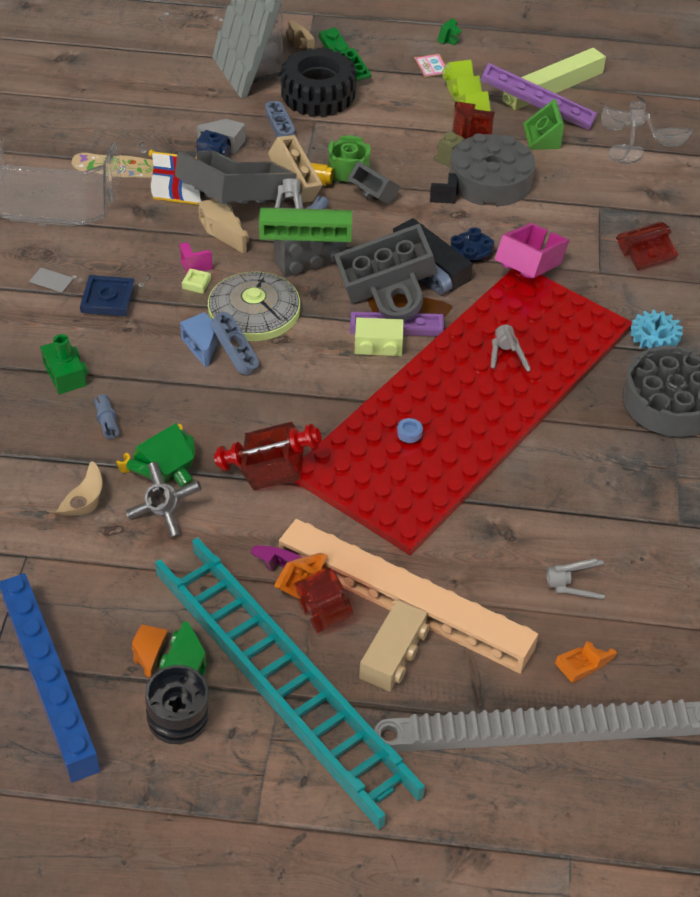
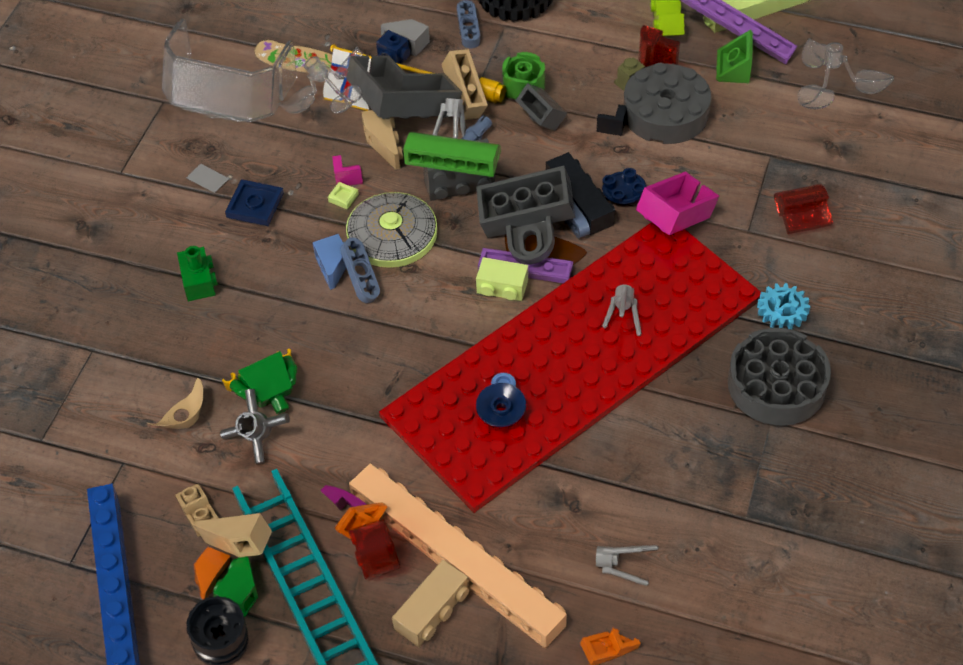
camera: 15 degrees right, 5 degrees up
(106, 416) = (224, 331): sand blue pin -> none
(120, 591) = (195, 505): none -> tan slope
(148, 168) = (319, 72): none -> clear plant
(171, 605) = (237, 534): none -> tan slope
(270, 454) = (362, 394): clear red brick -> none
(414, 447) = (500, 396): none -> dark blue dish

